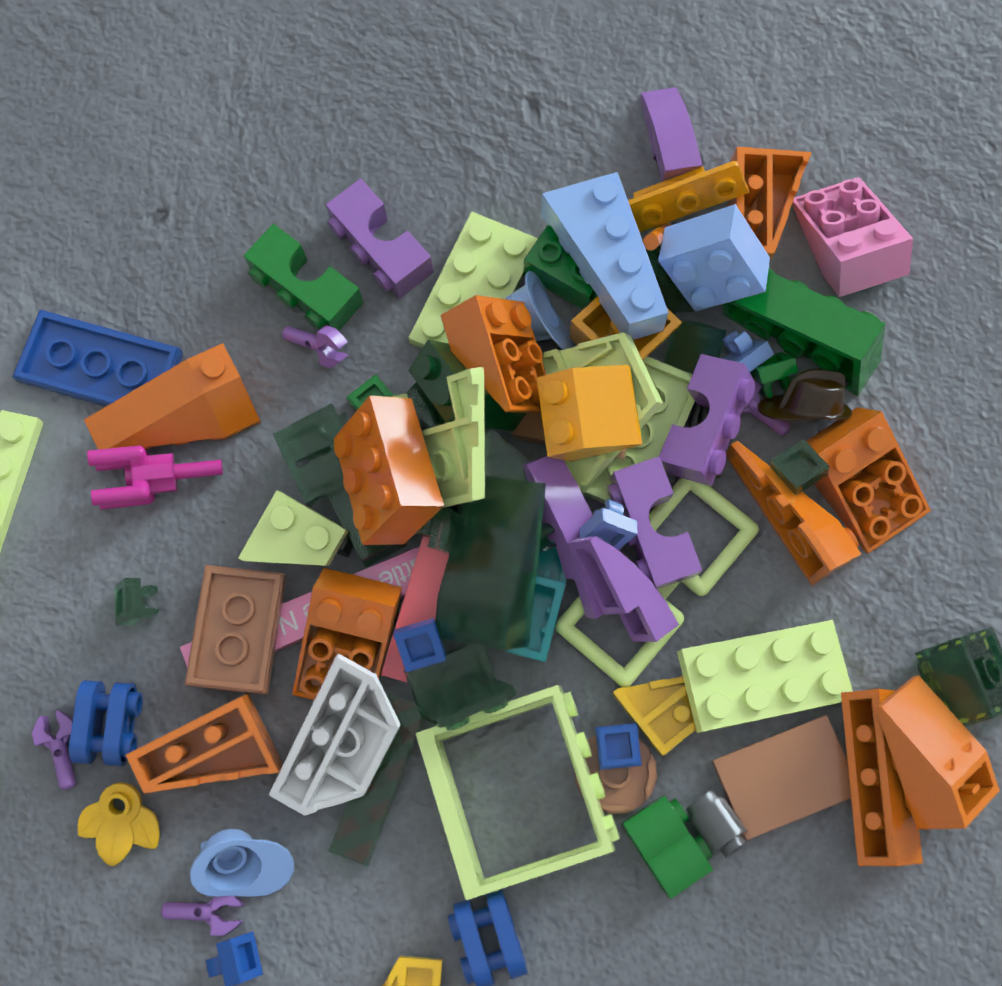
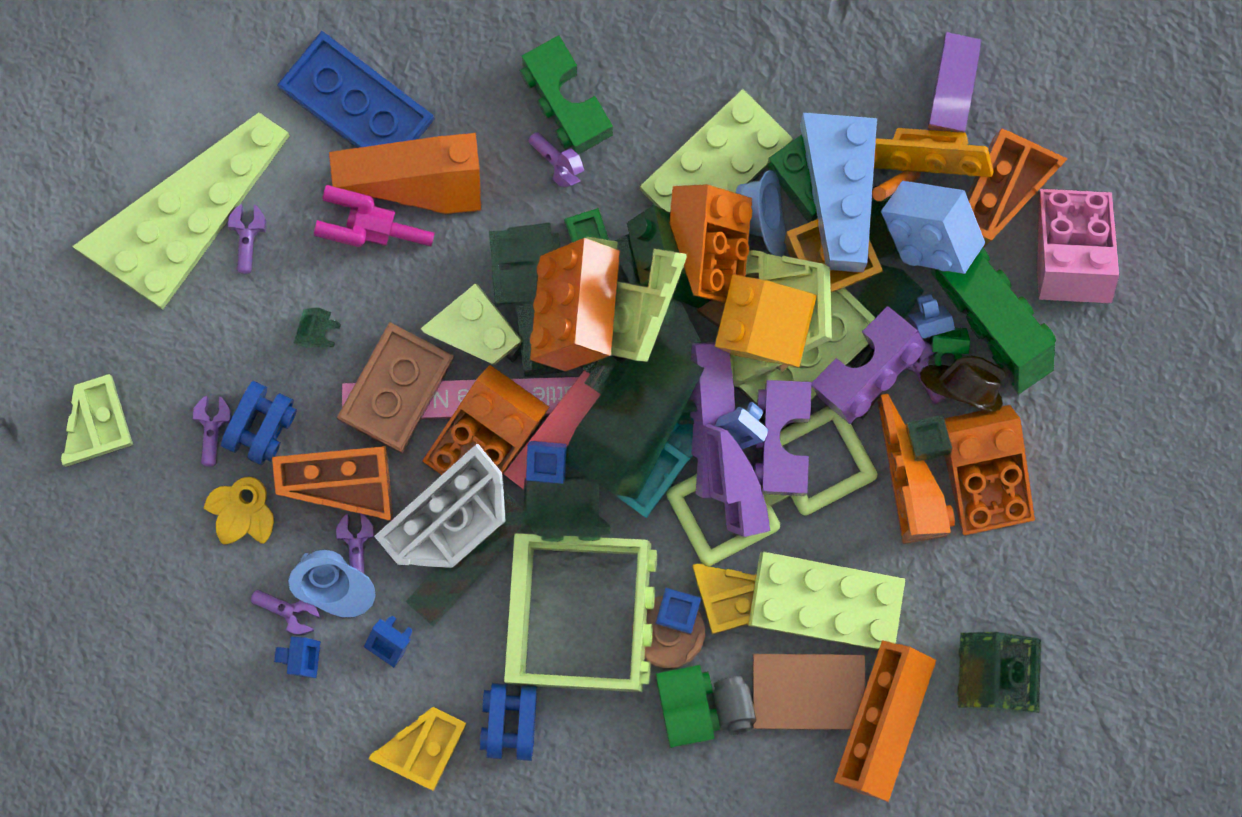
camera: 15 degrees right, 5 degrees up
(30, 534) = (246, 236): none -> medium lavender bar
(253, 810) = (356, 549): none -> medium lavender bar
(325, 904) = (388, 642): none -> blue tile
(396, 263) = (656, 113): medium lavender arch -> none
(936, 758) = (933, 718): orange slope -> none

